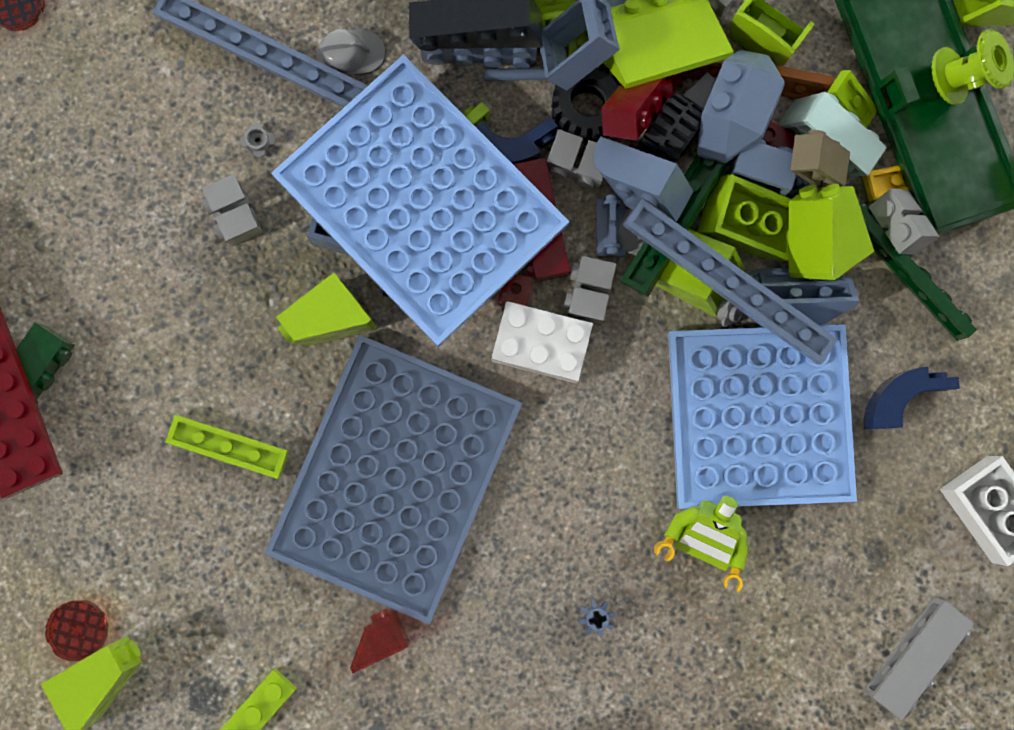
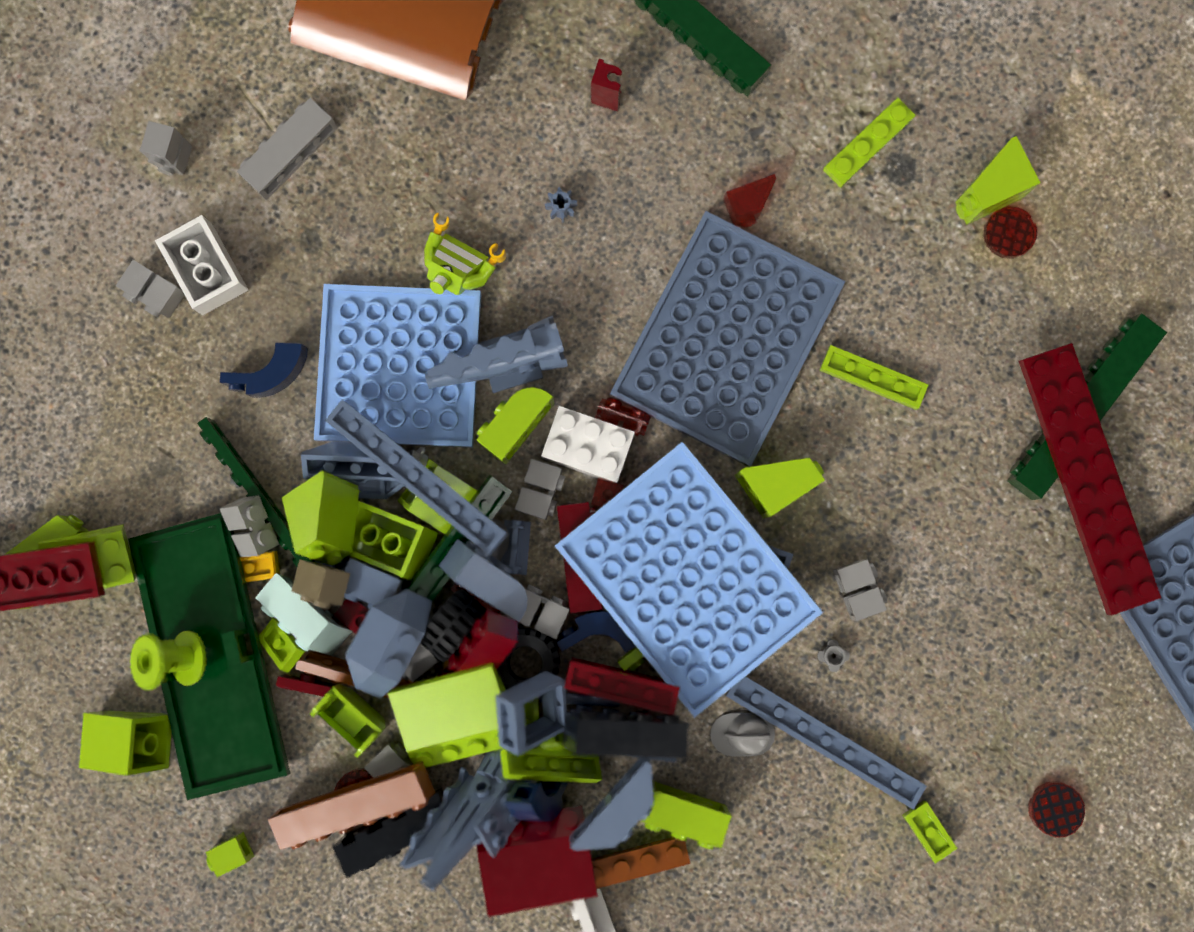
camera: 170 degrees left, 0 degrees up
(495, 82) = (621, 686): none -> dark red fence
(517, 385) = (615, 411): none -> clear red hinge
(627, 357) = (514, 422): none -> lime brick
(642, 430) = (505, 359): none -> sand blue piece
(820, 62) = (304, 684): none -> dark red plate

